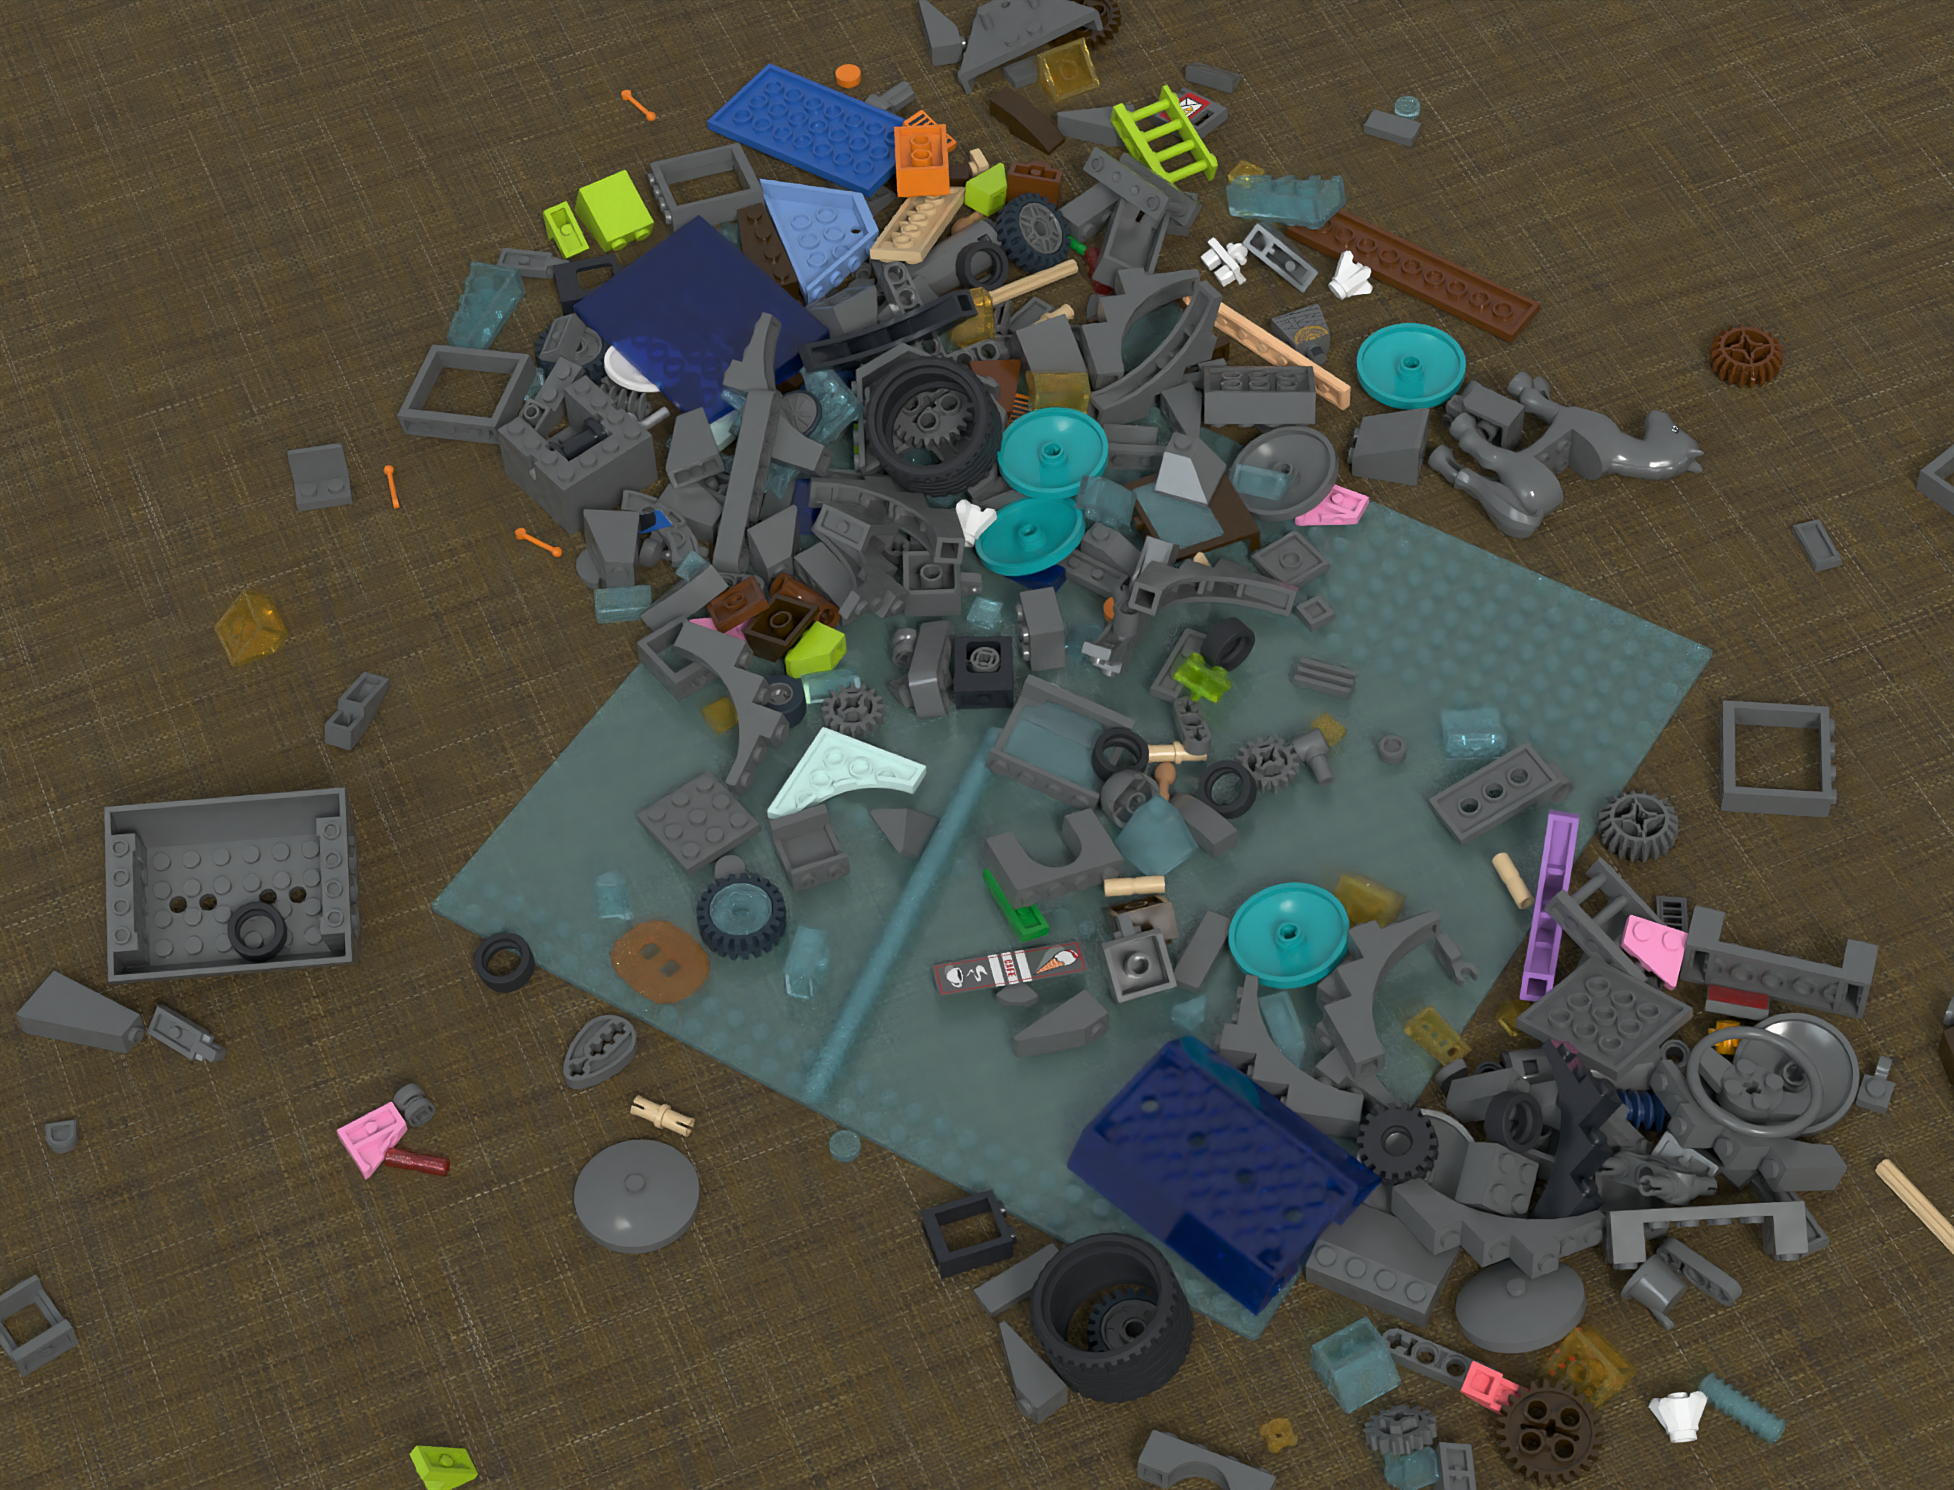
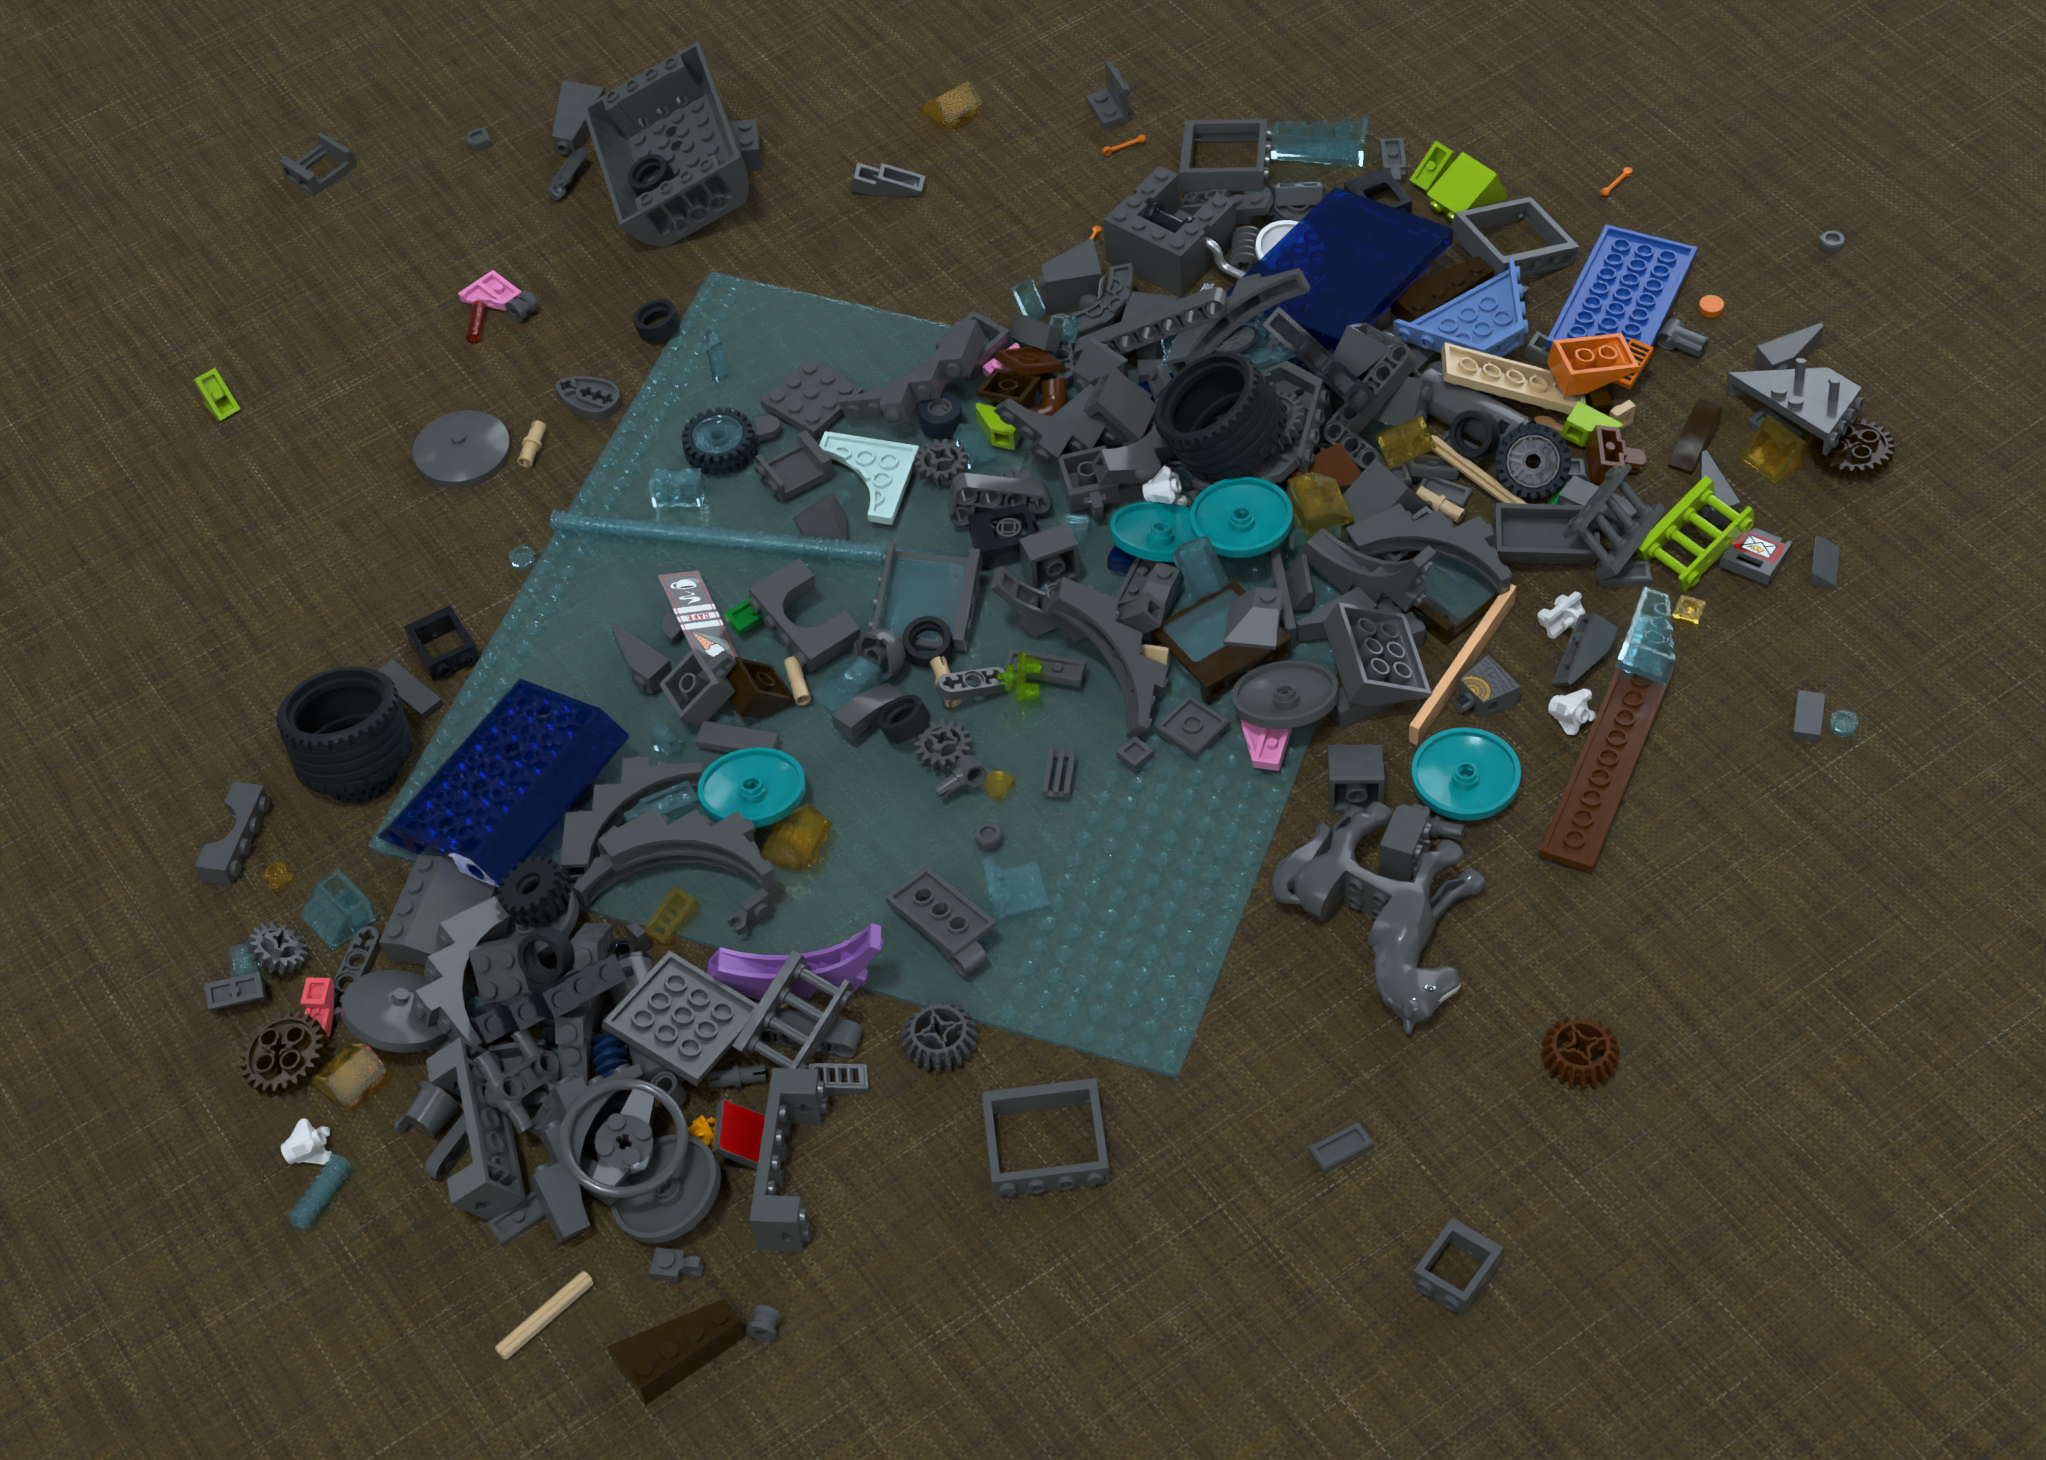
camera: 80 degrees right, 0 degrees up
(645, 975) = (659, 397): clear orange piece -> none
(692, 450) = (1178, 286): dark grey slope -> none
(1165, 776) = (920, 680): medium nougat piece -> none
(1228, 644) = (1064, 688): black tyre -> none
(1260, 481) = (1269, 677): clear light blue slope -> none
(1655, 947) = (772, 1049): bright pink wing -> none

